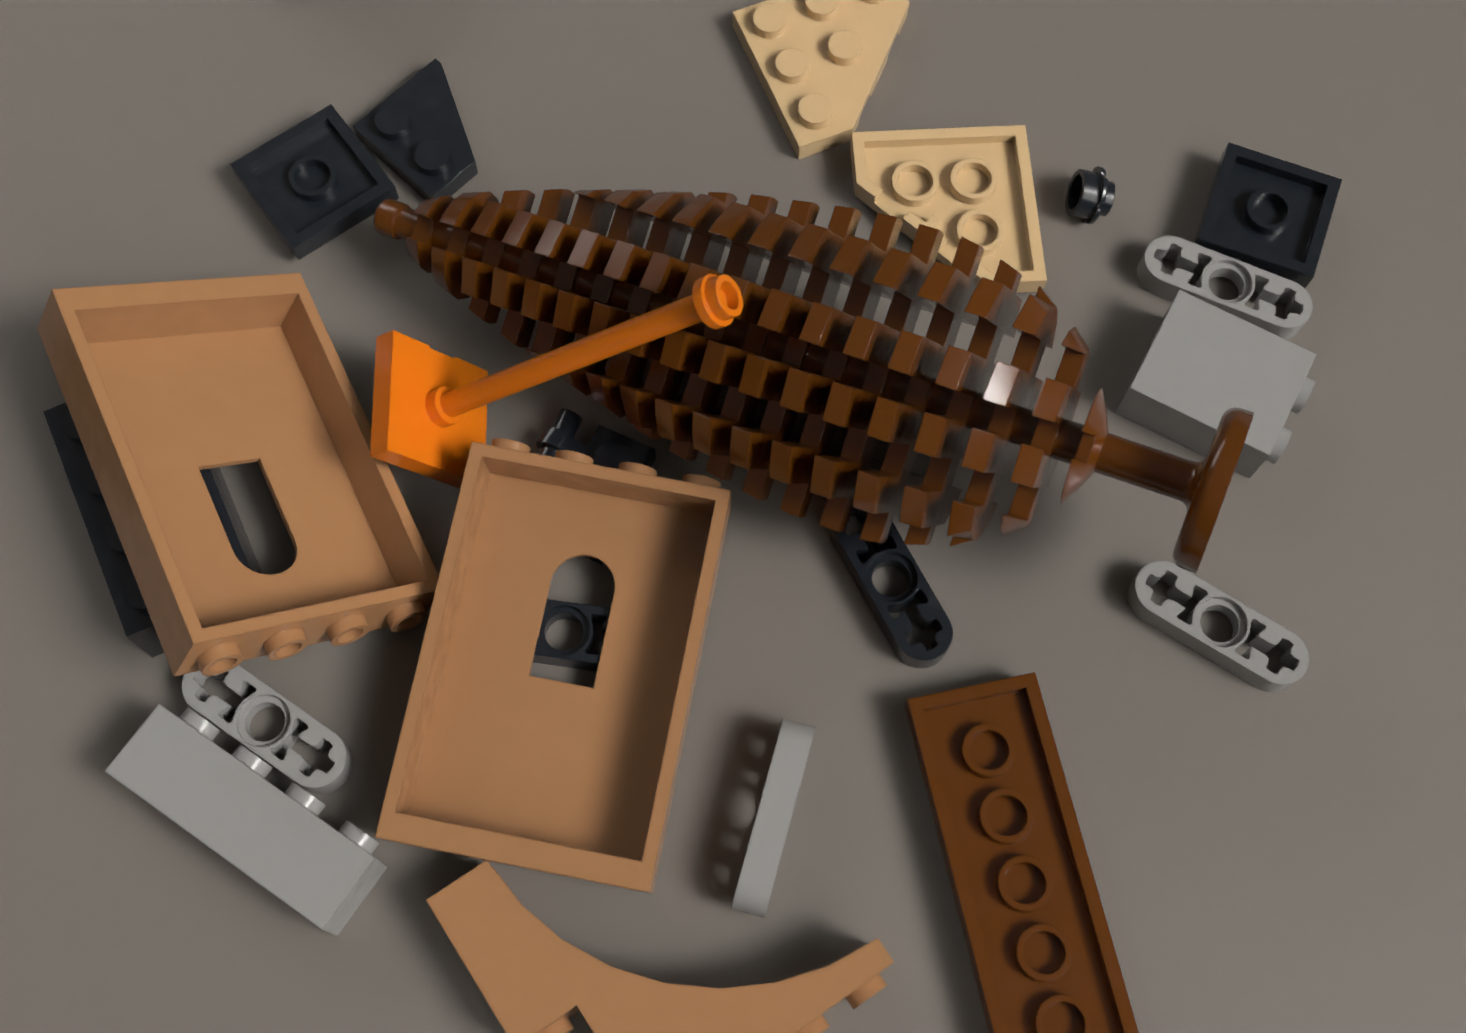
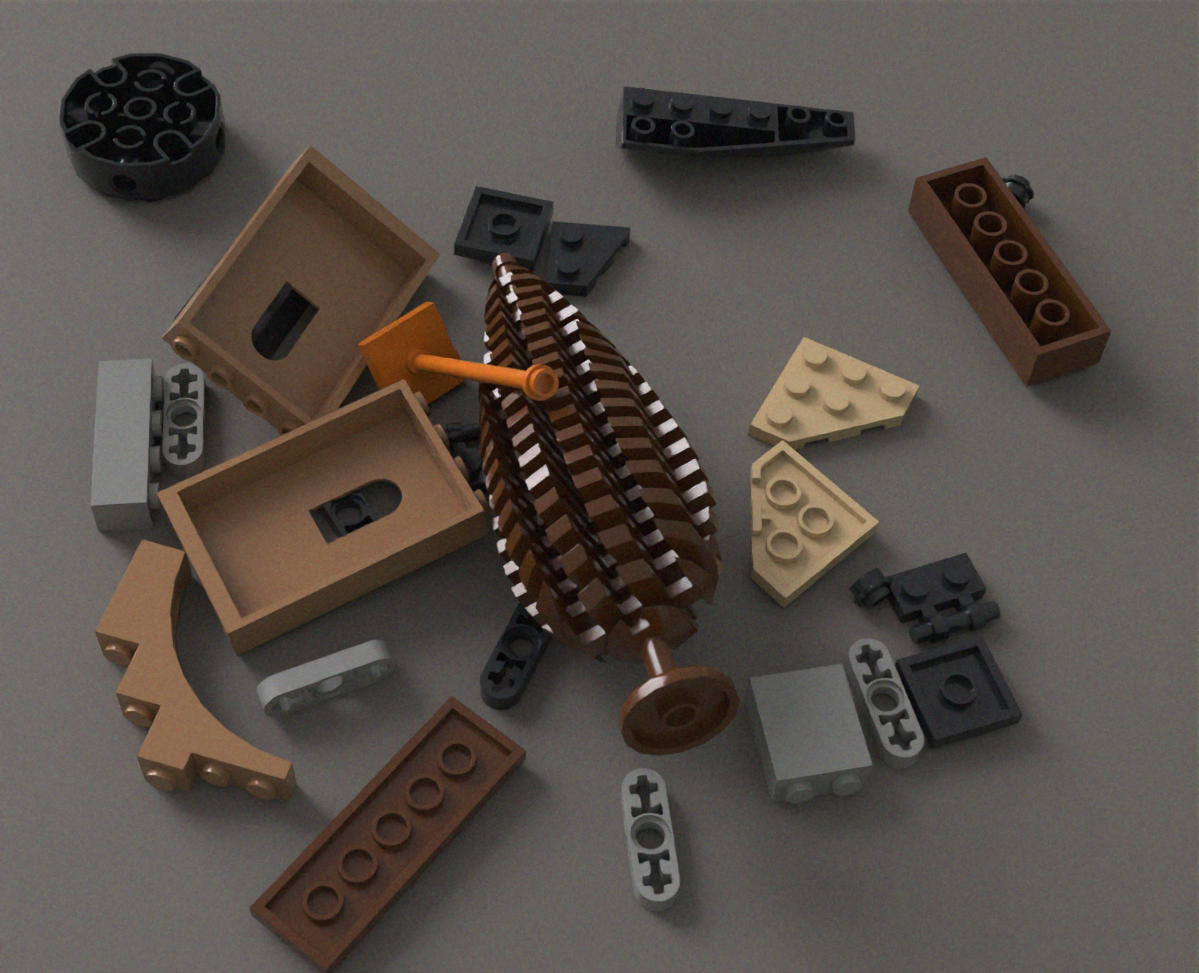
camera: 50 degrees right, 15 degrees down
(1129, 139) = (938, 587): none -> black plate

